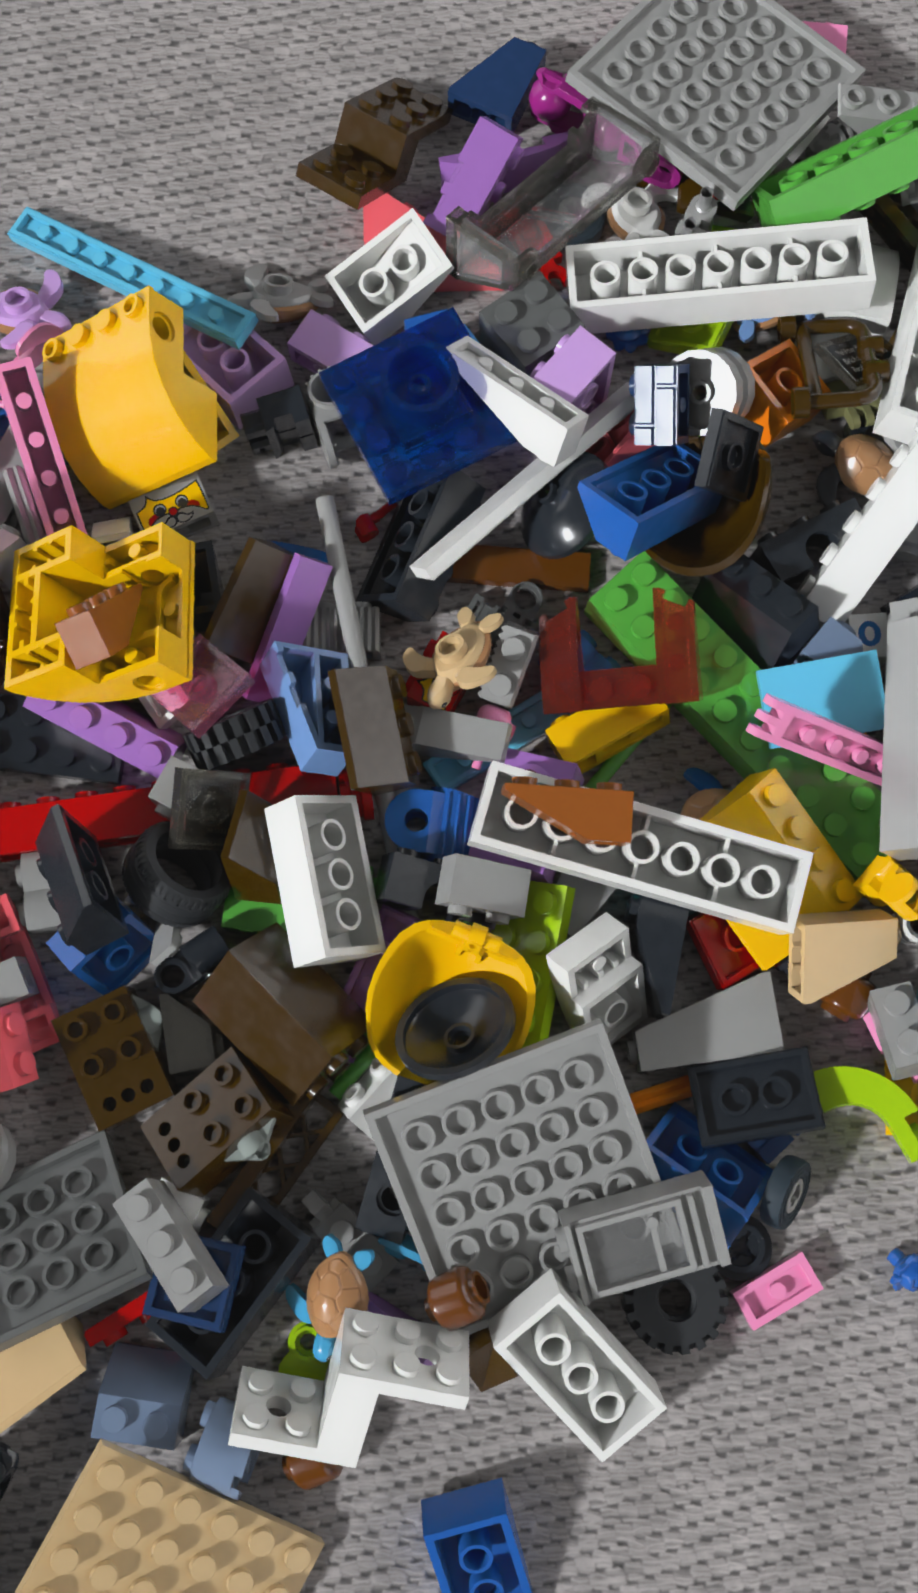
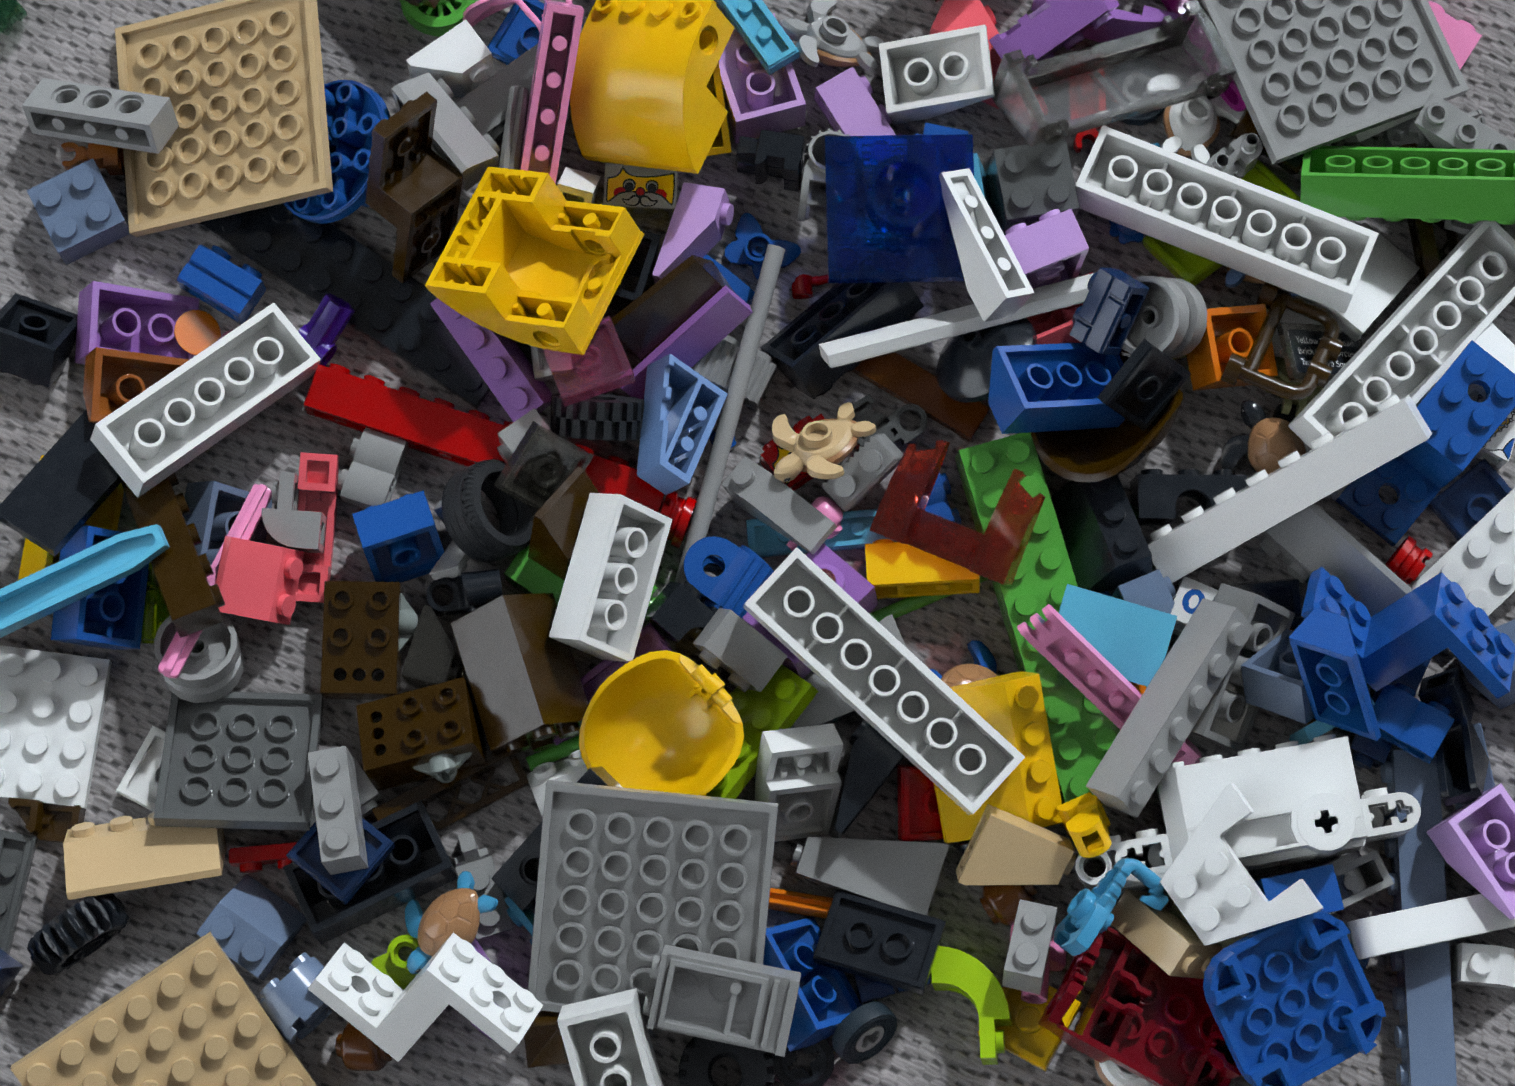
camera: 20 degrees right, 0 degrees up
(78, 883) = (404, 477): black slope -> none
(100, 624) = (533, 272): dark orange slope -> none
(238, 513) = (694, 226): none -> lavender slope
(302, 513) = (752, 246): none -> blue animal
(375, 729) = (716, 471): dark brown slope -> none
(455, 1028) = (656, 753): black dish -> none
(457, 1298) = (547, 970): reddish brown head -> none
(585, 814) = (848, 628): dark orange slope -> none

